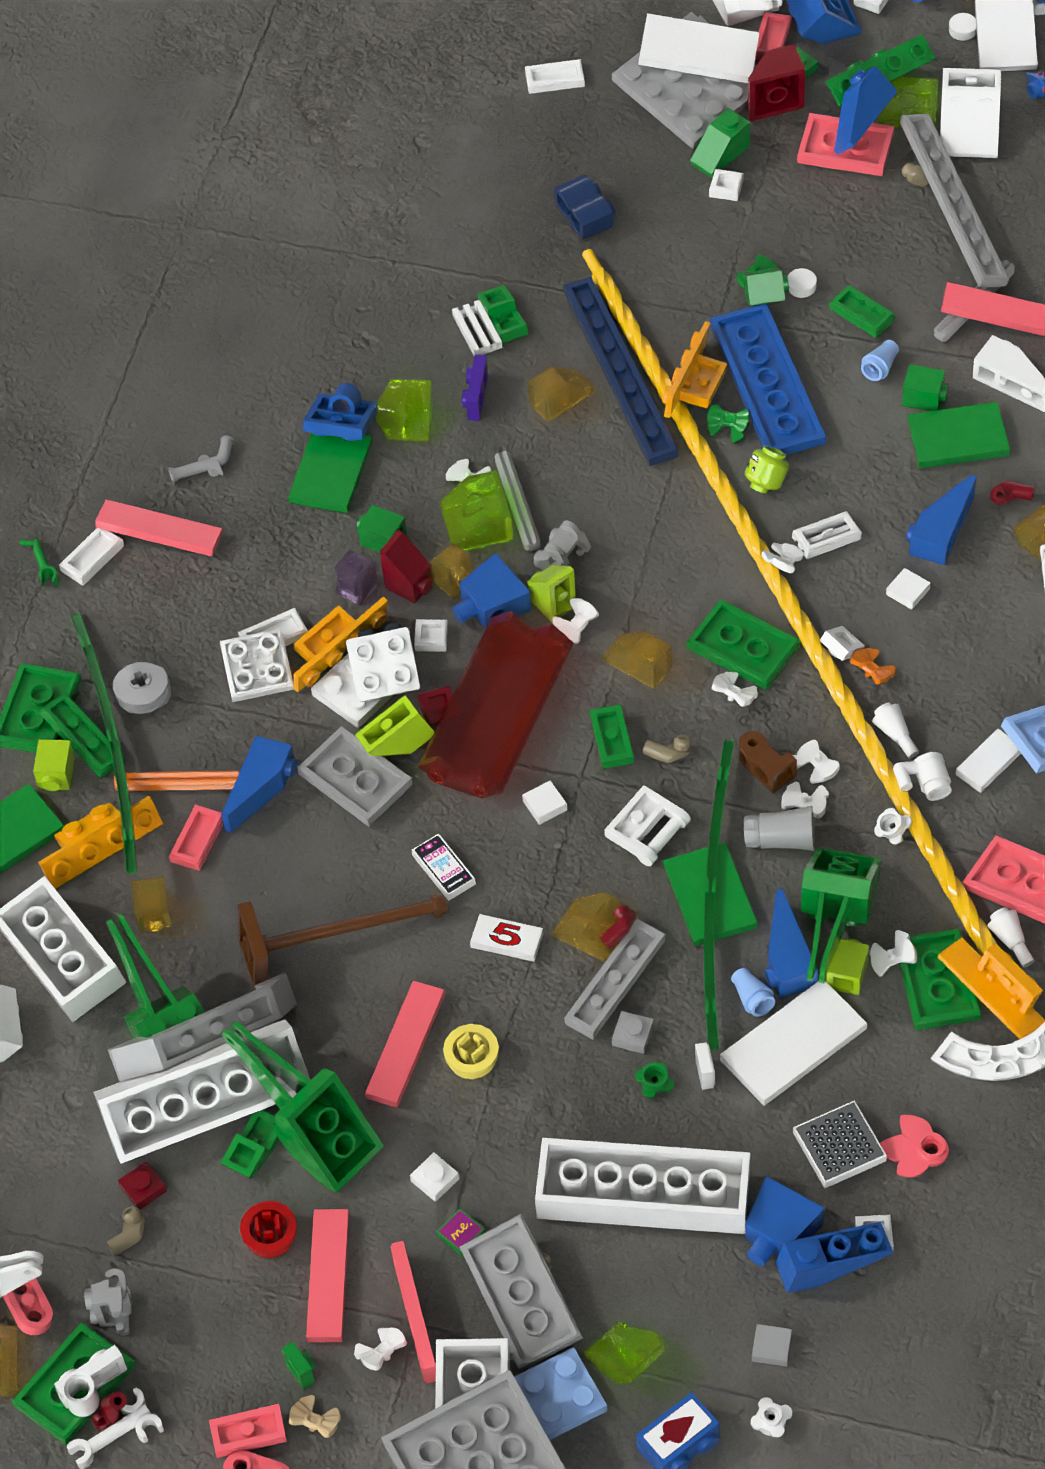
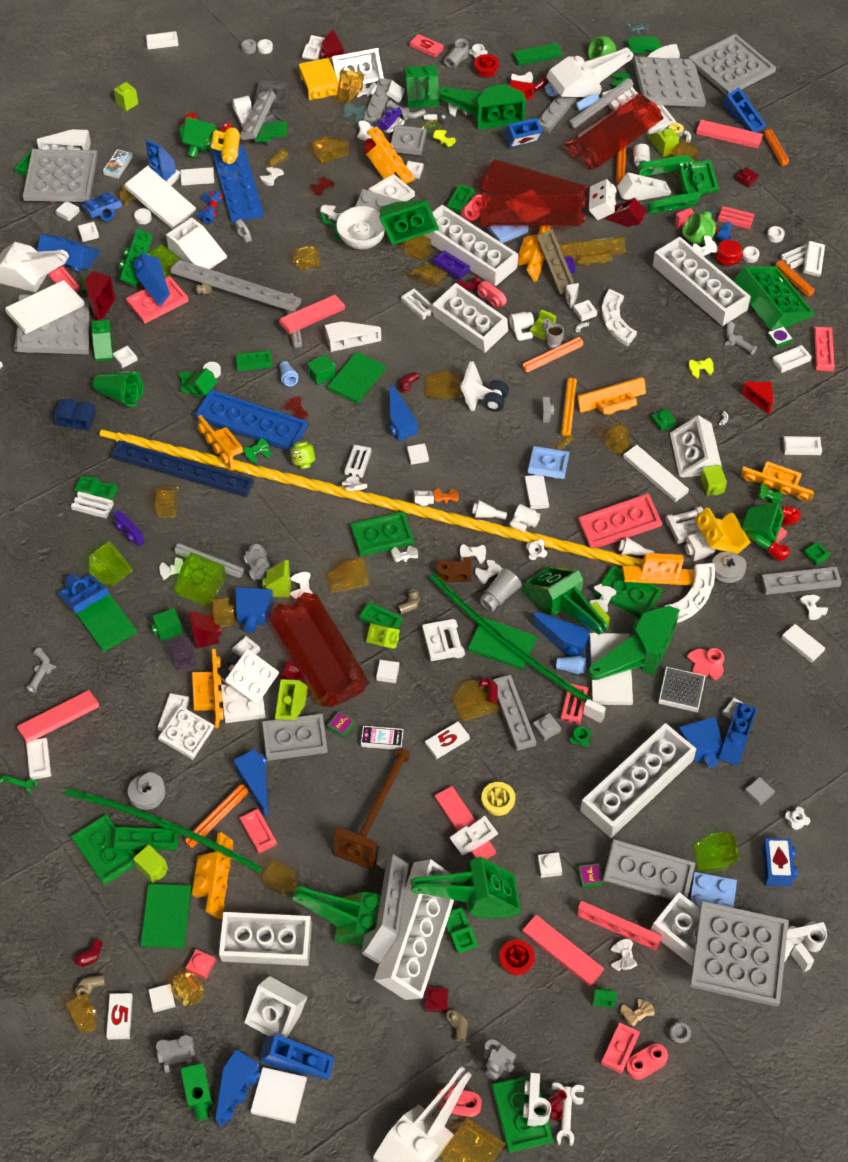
camera: 55 degrees left, 0 degrees up
(392, 1063) = (474, 836): none -> white slope
(421, 810) = (341, 724): none -> tile
(584, 758) = (383, 636): none -> lime bracket
(668, 217) = (120, 386): none -> green cone
(683, 1052) = (571, 717): none -> coral tile
(840, 403) = (295, 403): none -> clear red piece
(862, 1055) = (643, 648): none -> green slope

